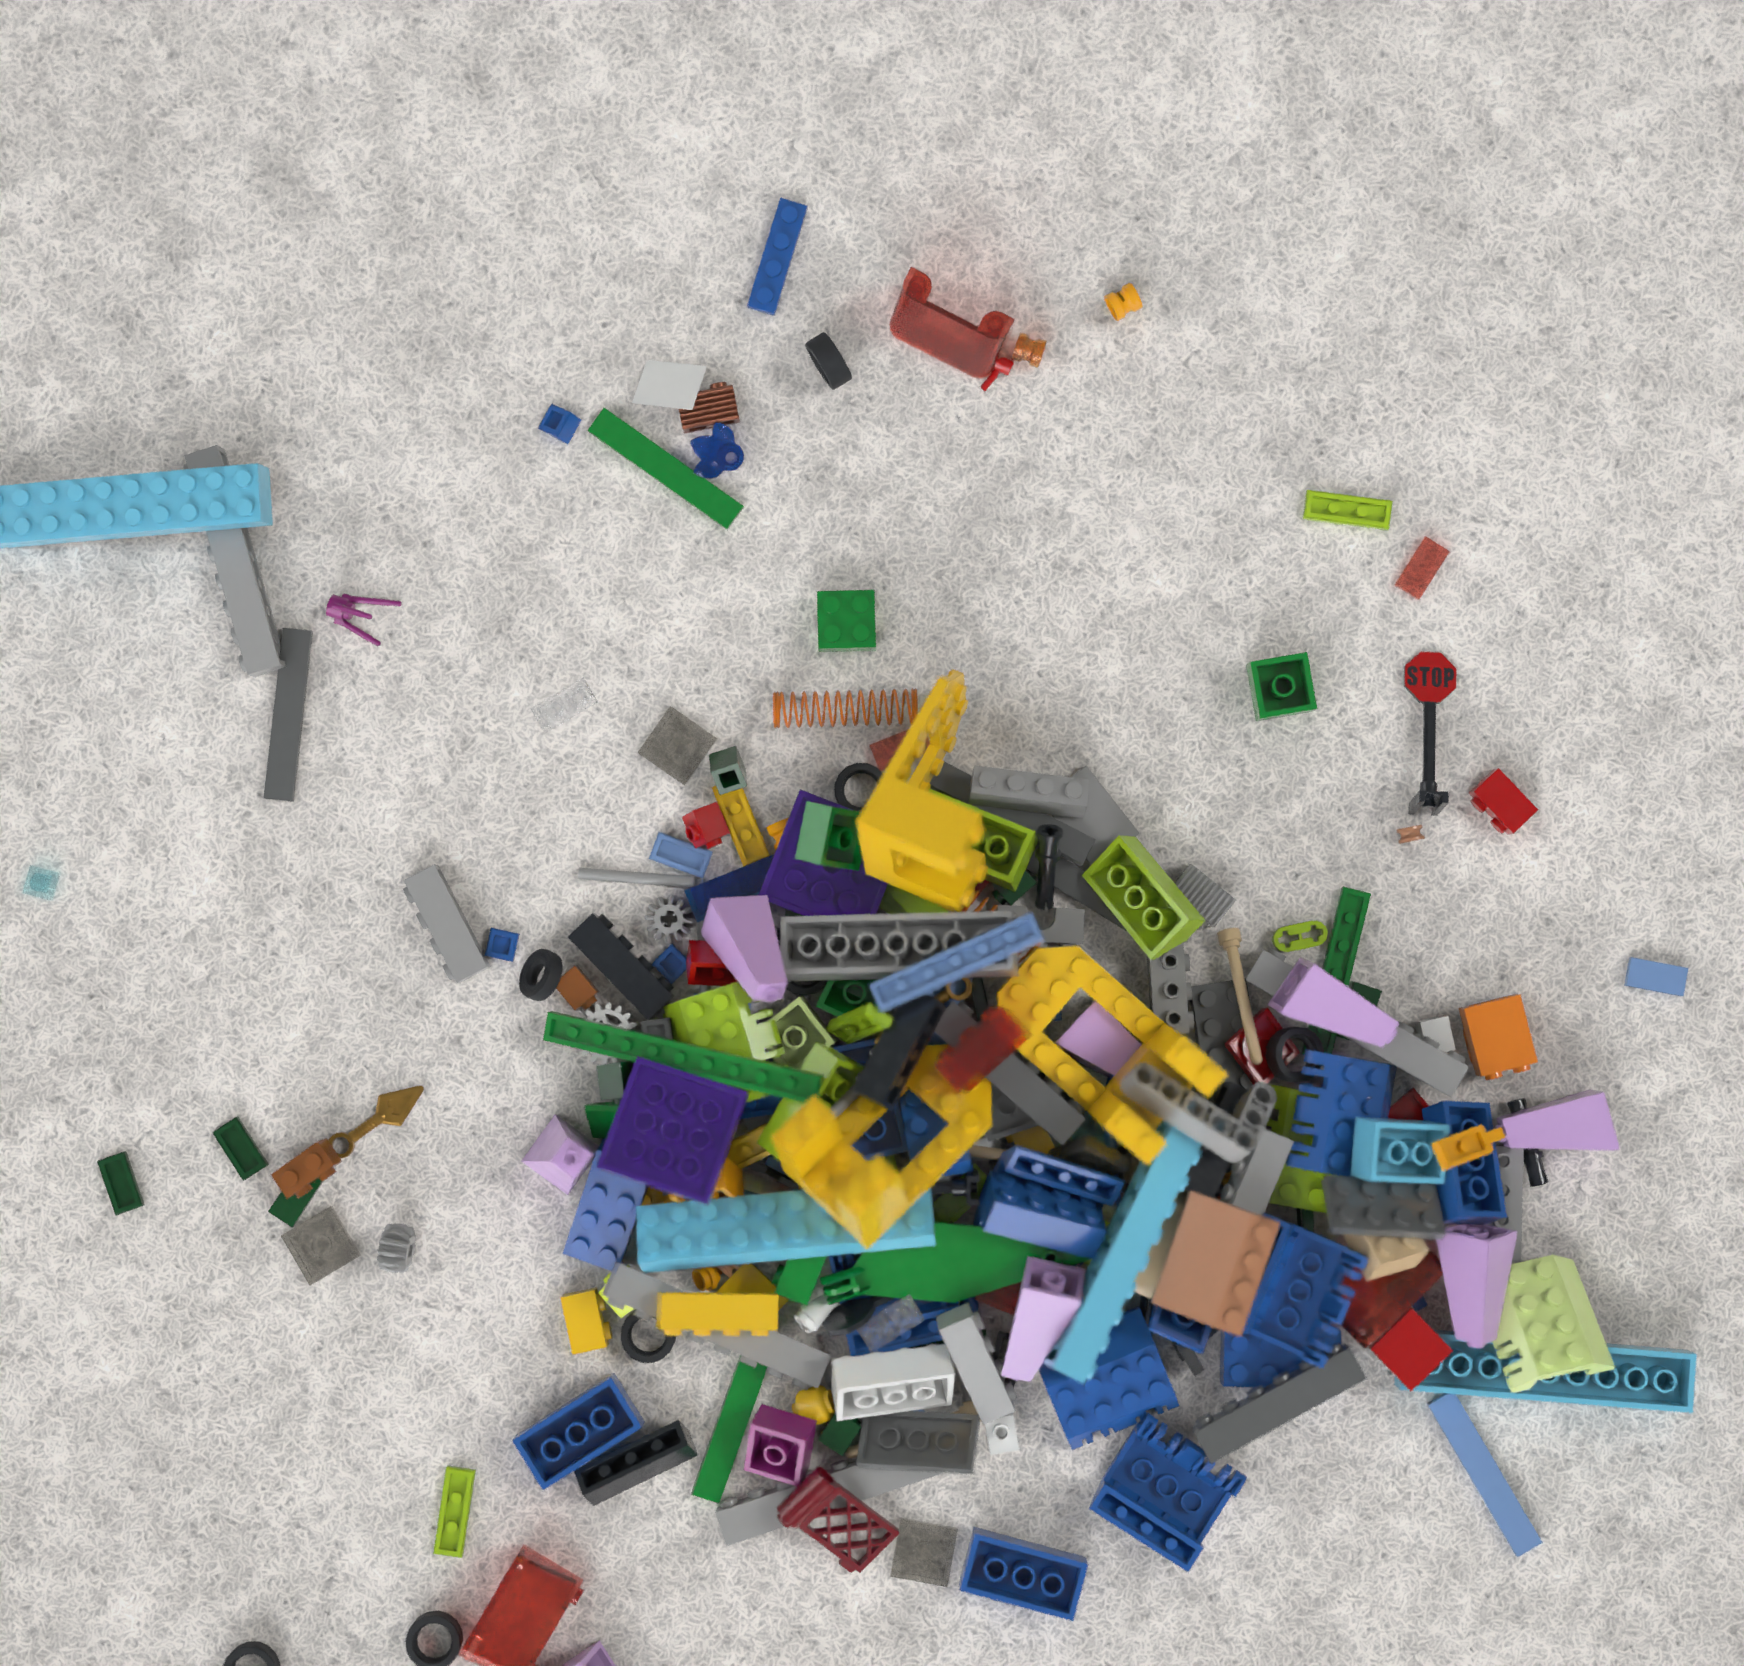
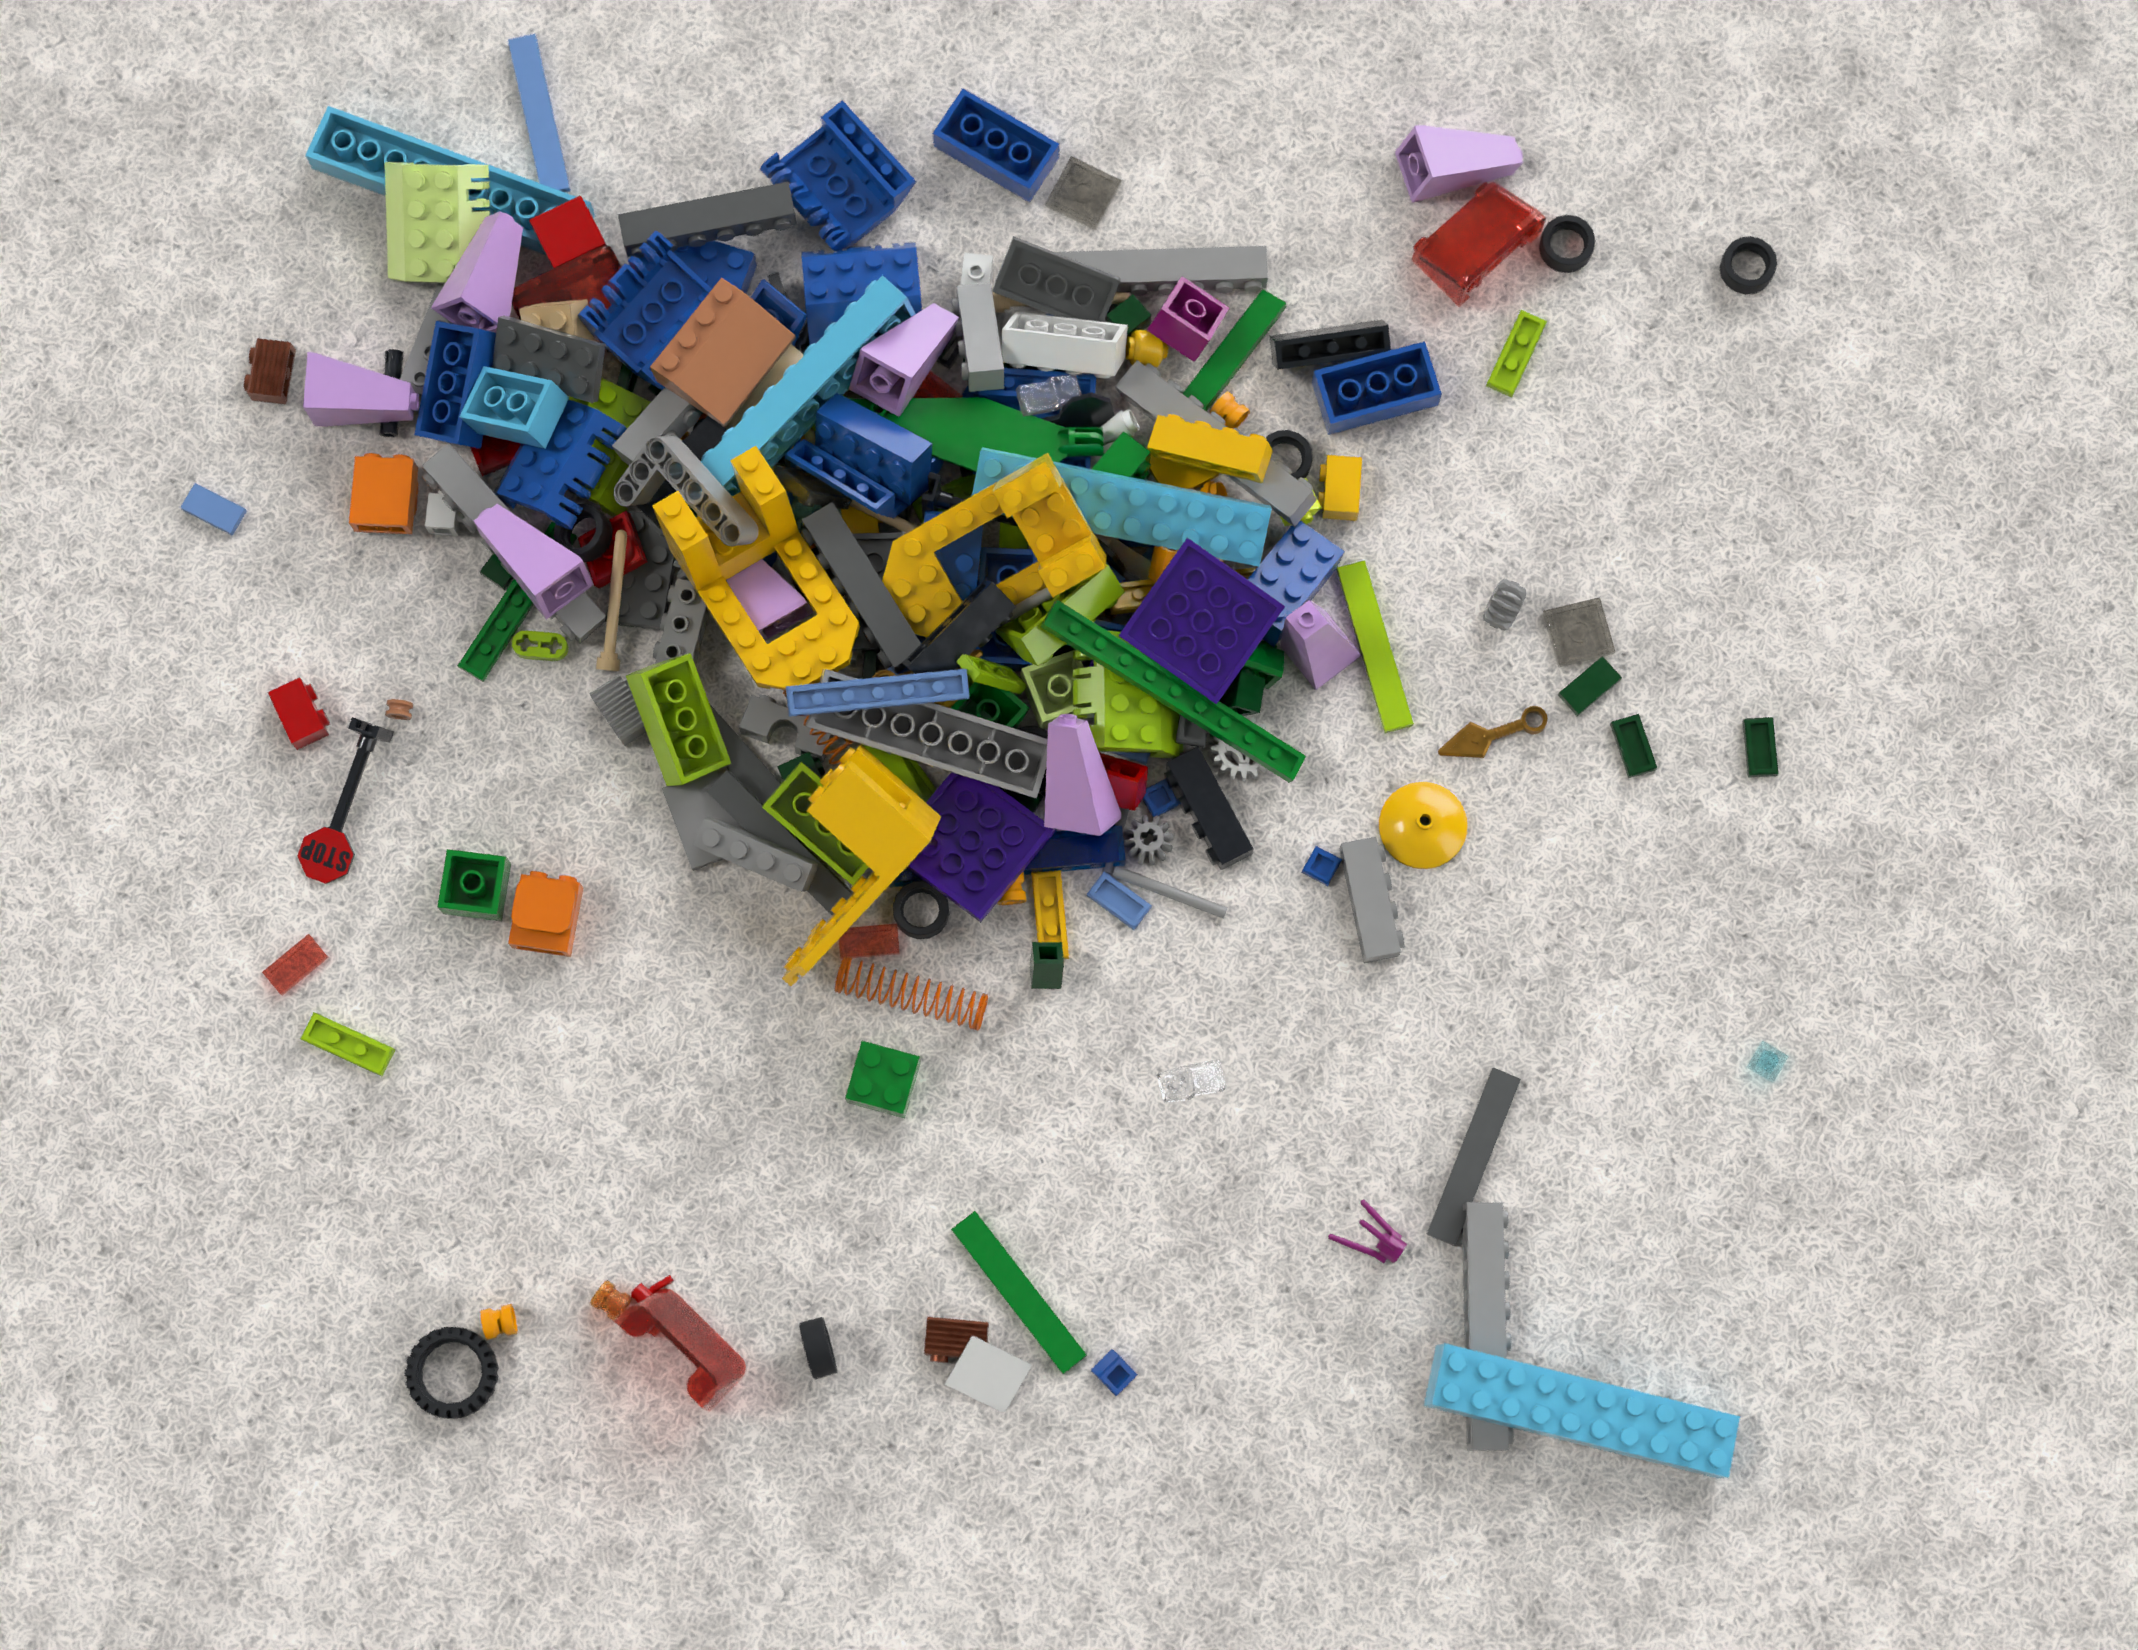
camera: 165 degrees left, 10 degrees down
(311, 1164) = (1572, 702): dark orange brick -> none
(438, 1008) = (1419, 844): none -> yellow dish
(511, 1173) = (1374, 646): none -> lime tile
(550, 979) = (1302, 827): black tyre -> none
(577, 989) = (1259, 799): dark orange brick -> none
(677, 745) = (1090, 1009): clear smoke tile -> none
(706, 826) = (1085, 918): red brick -> none
(713, 452) = (963, 1292): clear blue plate -> none
(714, 1366) = (1230, 410): none -> light orange wheel
(777, 256) = (836, 1479): blue plate -> none
(809, 1502) = (1170, 260): dark red piece -> none
(830, 837) = (962, 862): green slope -> none
(982, 1049) = (878, 605): clear red brick -> none
(1048, 855) = (757, 786): black pin -> none
(1150, 211) = (423, 1349): none -> black tyre
(1207, 681) = (545, 914): none -> orange brick
(1465, 1146) = (450, 392): light orange hinge -> none
(1652, 1128) = (270, 371): none -> copper brick

